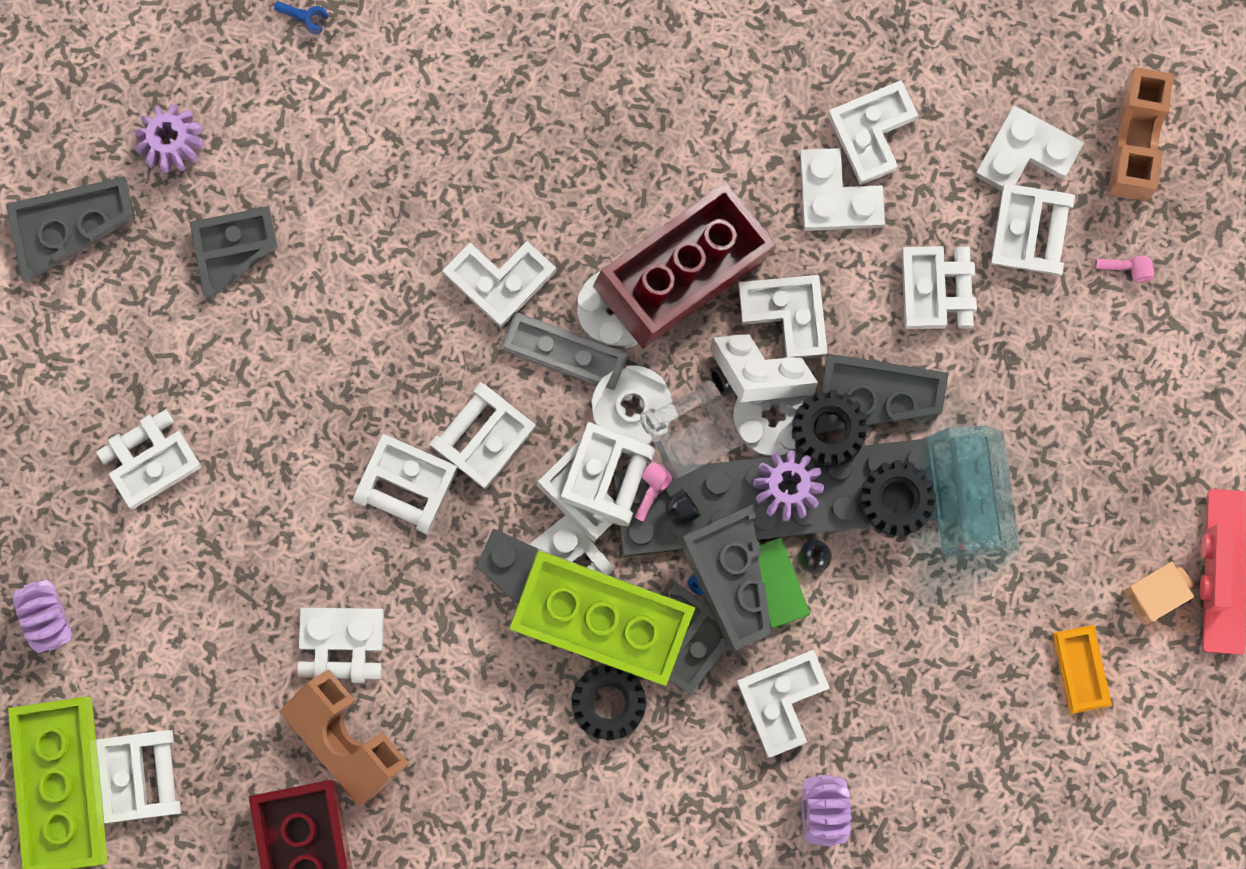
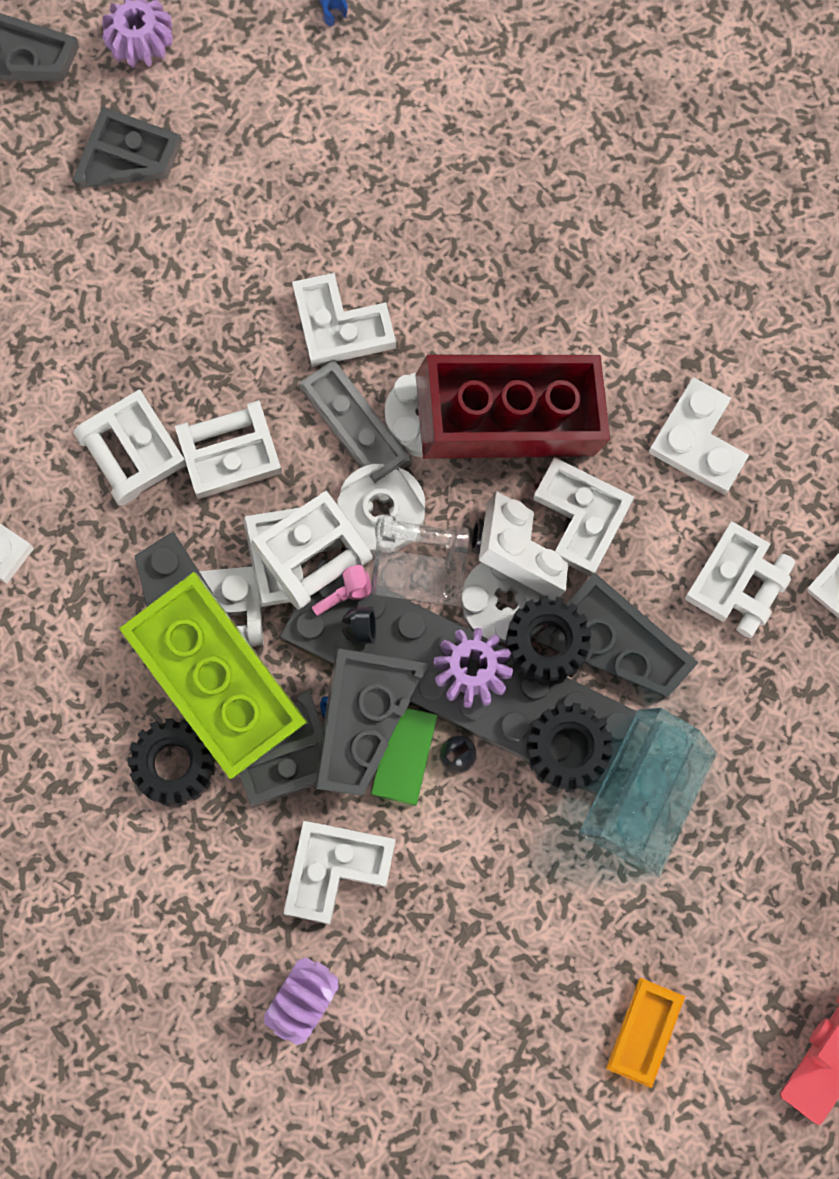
camera: 35 degrees right, 5 degrees down
(862, 127) = (767, 389): white plate -> none
(1159, 592) = (771, 1007): light nougat brick -> none

